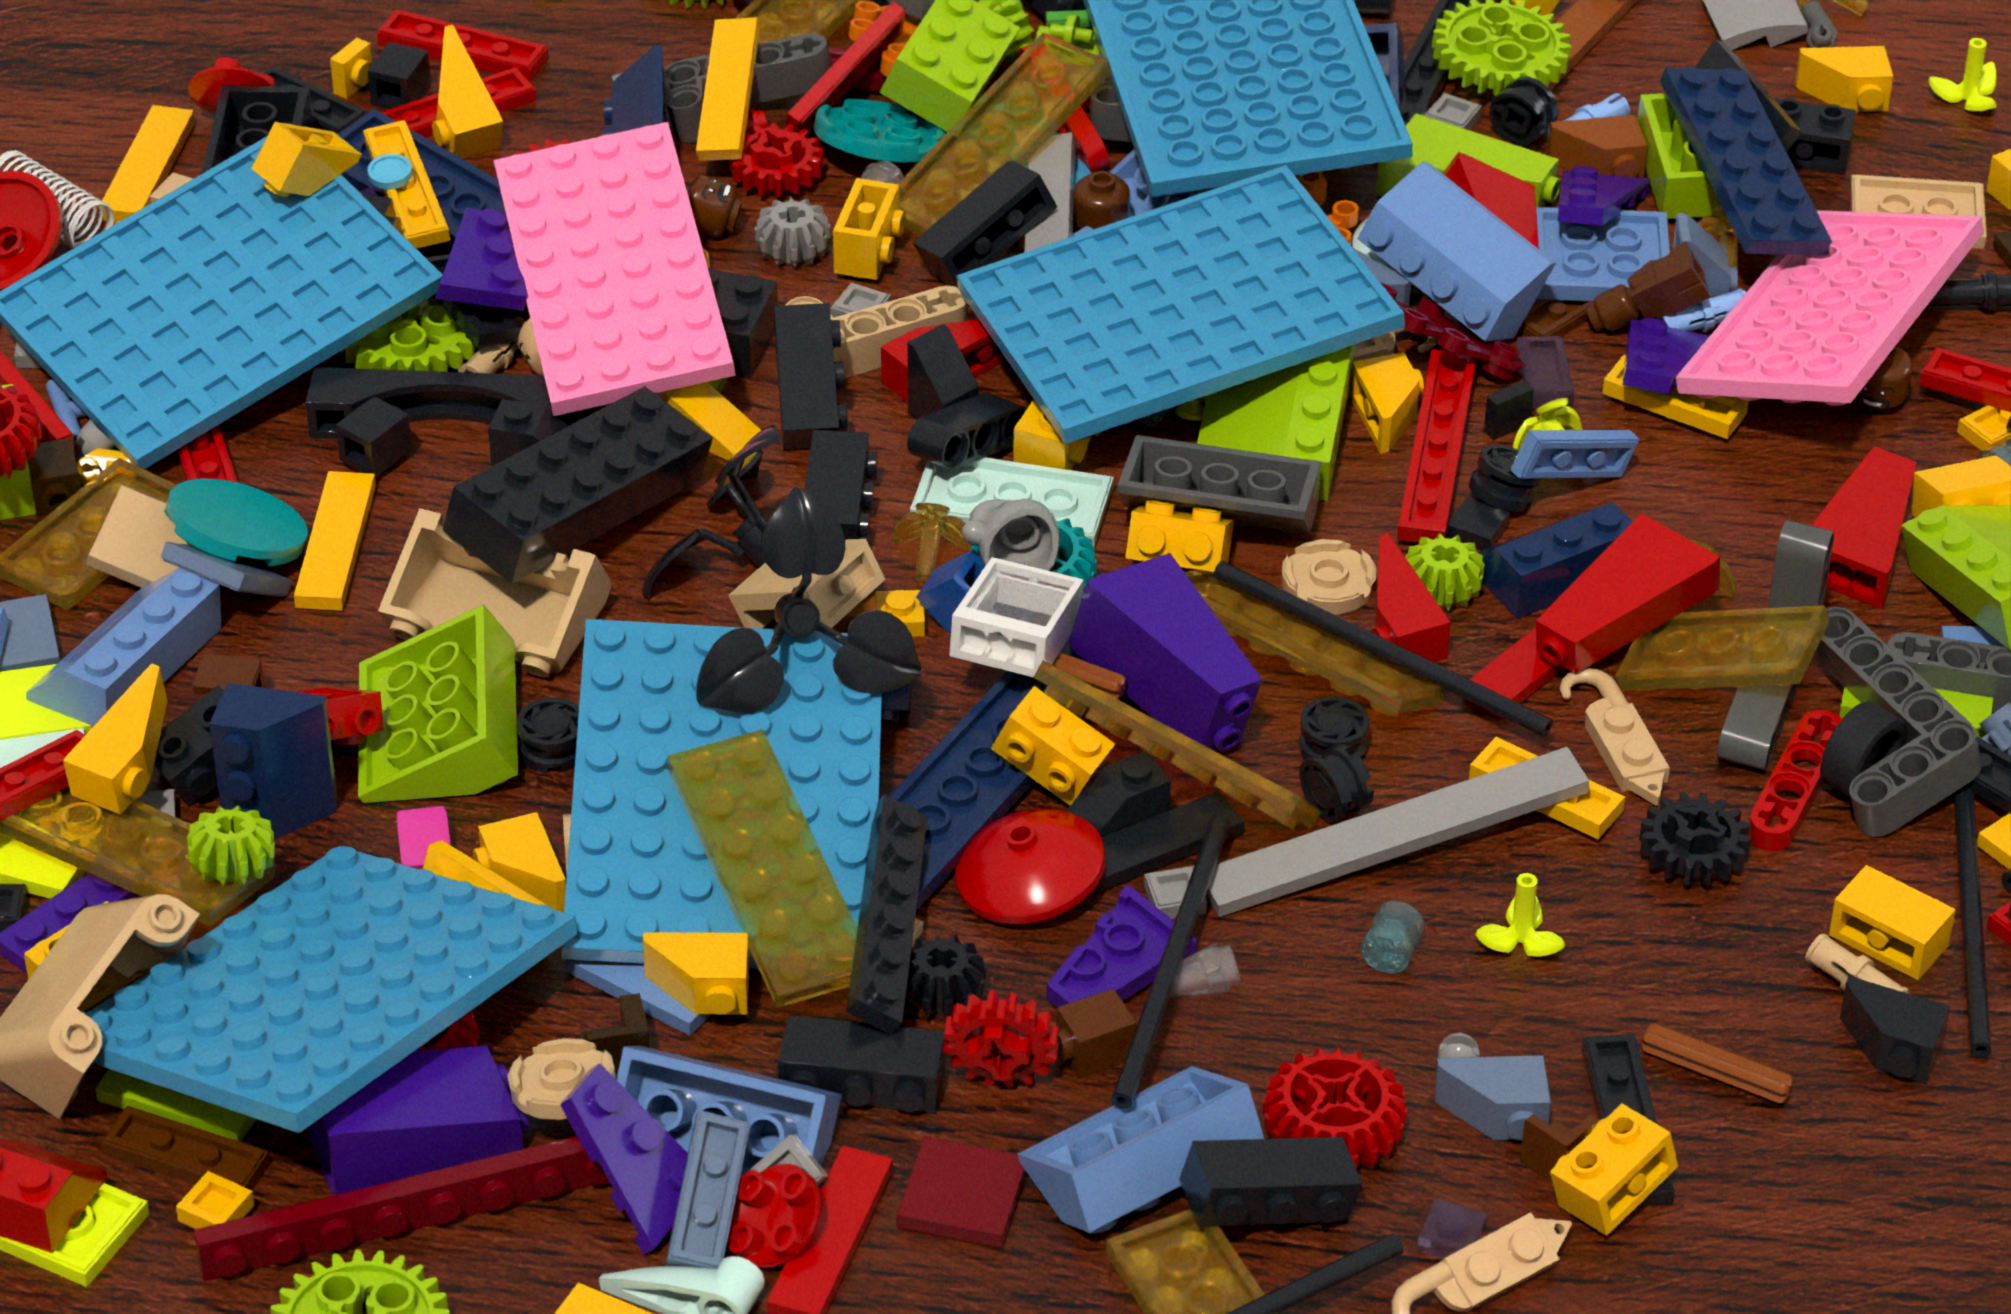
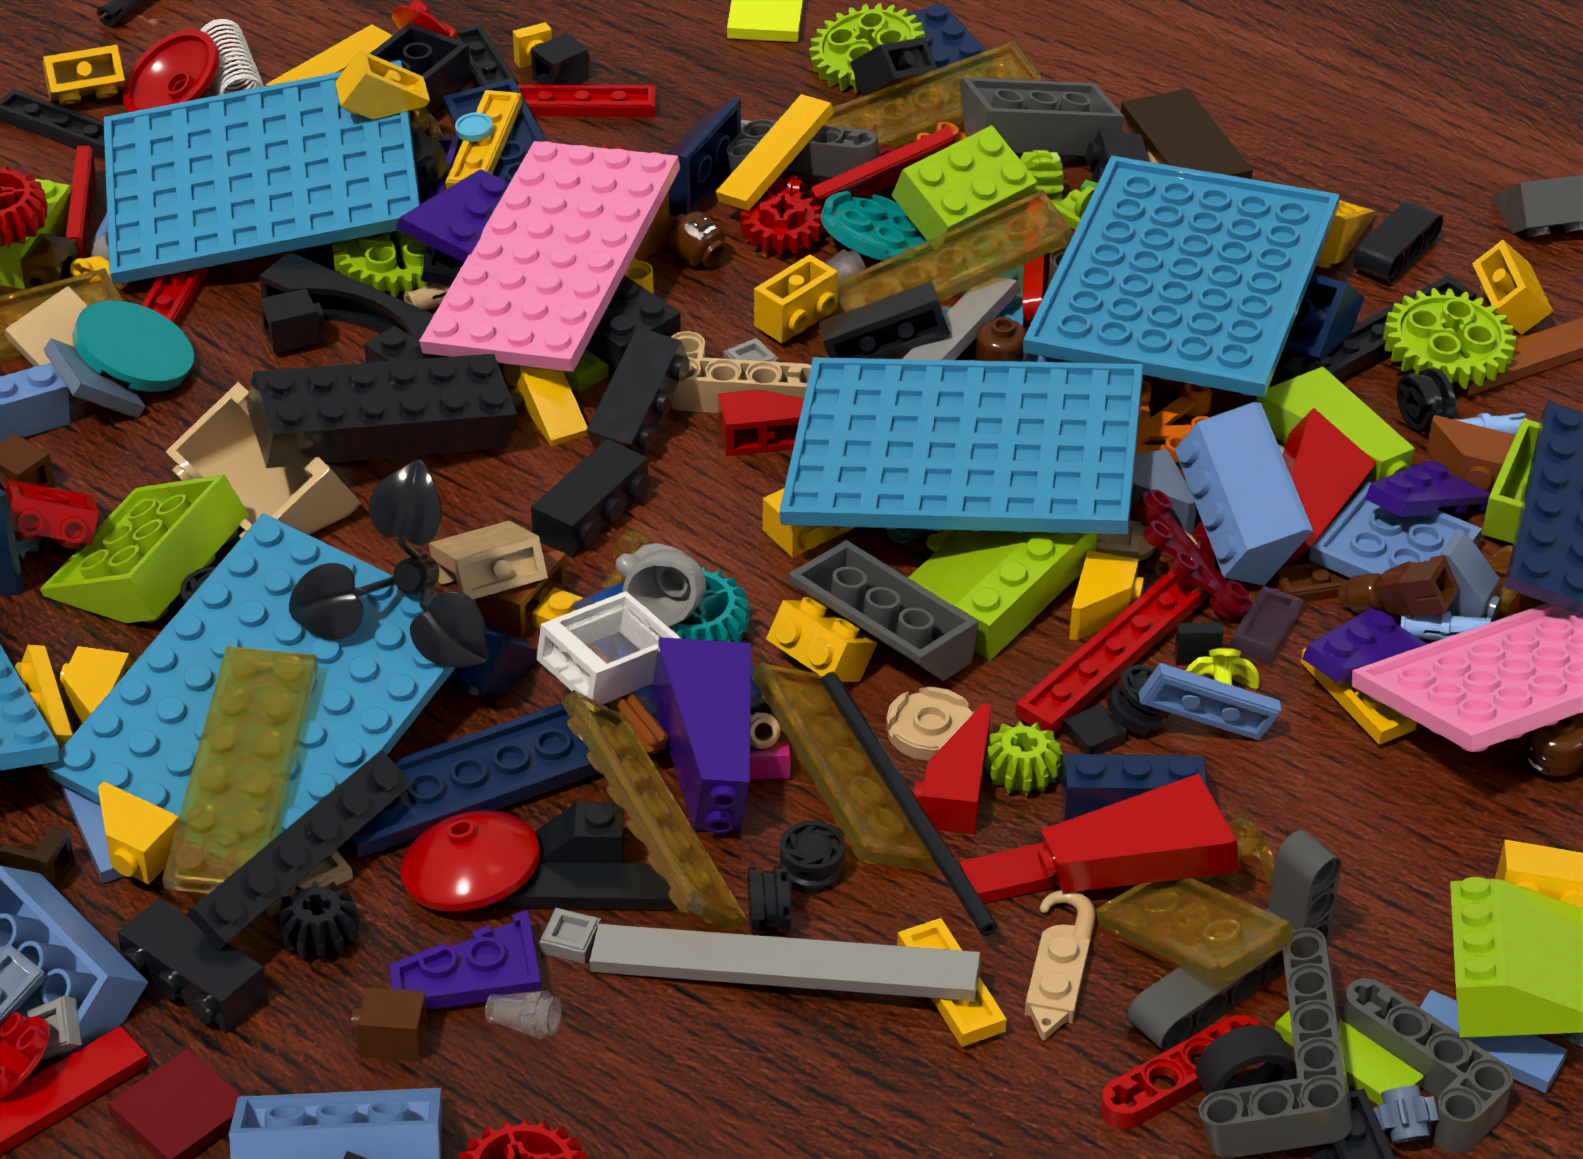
camera: 30 degrees right, 0 degrees up
(335, 541) = (202, 389): yellow tile -> none
(417, 830) = (57, 634): dark pink slope -> none
(465, 112) = (578, 96): yellow slope -> none
(486, 49) = (635, 57): red tile -> none
(740, 467) = (497, 503): black plant -> none
(792, 232) = (737, 277): light grey gear -> none
(937, 373) = (740, 440): black slope -> none
(965, 431) = (725, 485): black beam -> none
(1000, 1039) = (297, 993): red gear -> none
(1052, 745) = (553, 764): yellow brick -> none
(1064, 492) = (736, 547): light aqua tile -> none
(1170, 962) = (494, 991): black piece -> none
(1392, 937) = (703, 1053): clear light blue wheel -> none
(1455, 111) = (1370, 383): light grey tile -> none
(1523, 917) = (833, 1086): neon yellow plant -> none
(1695, 838) = (1038, 1084): black gear -> none
(1868, 526) = (1408, 879): red slope -> none

